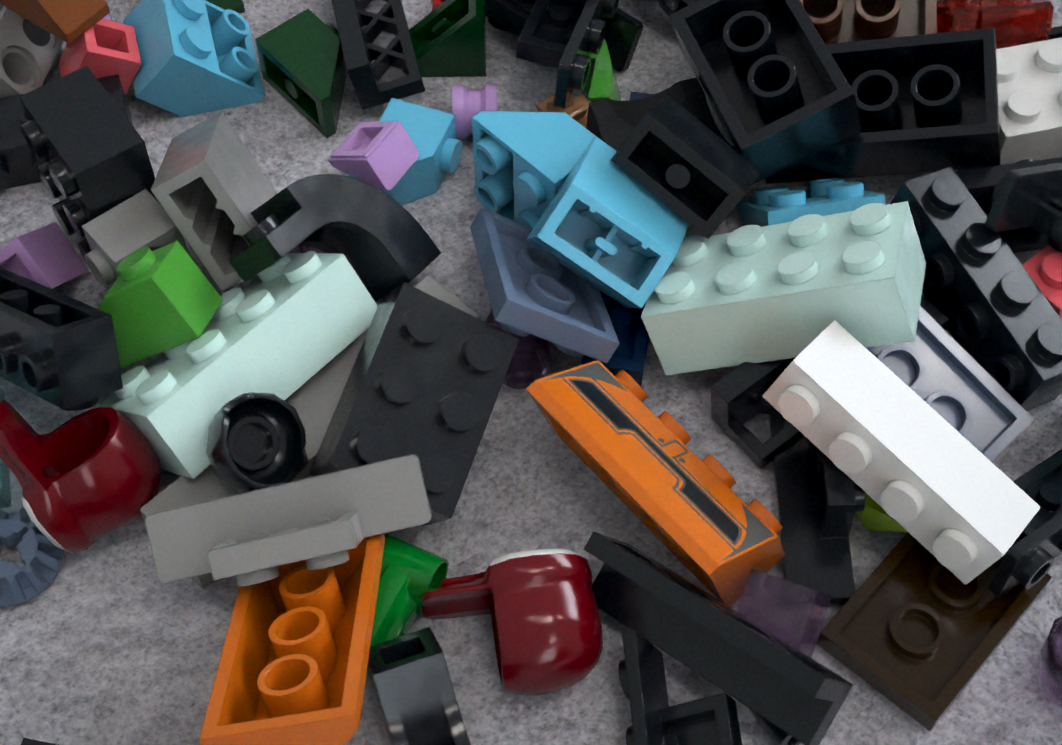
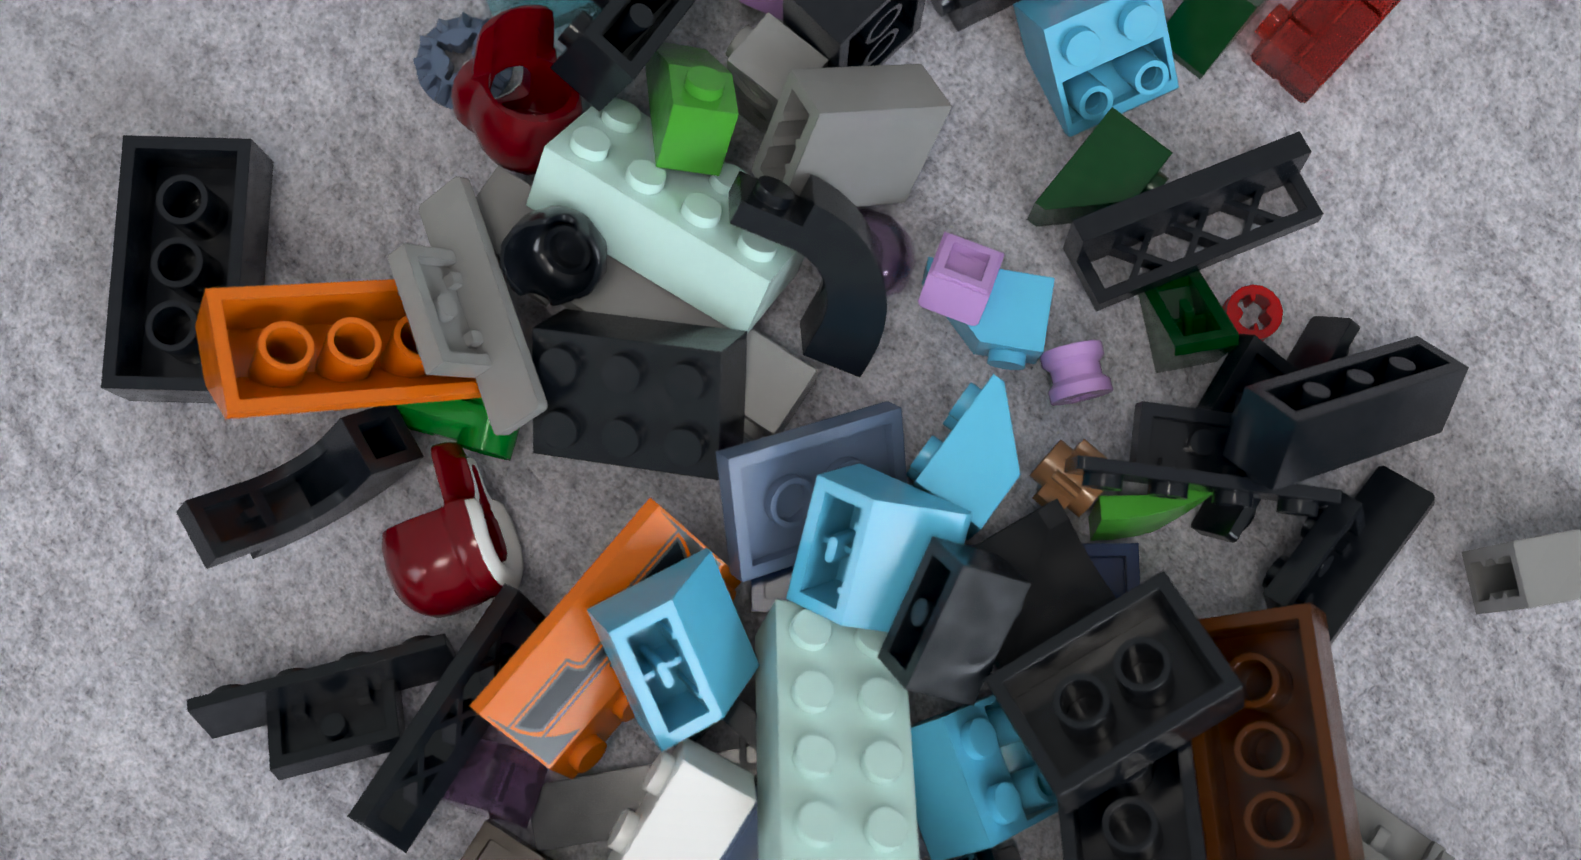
camera: 80 degrees right, 25 degrees up
(682, 395) = (677, 648): none -> medium azure slope

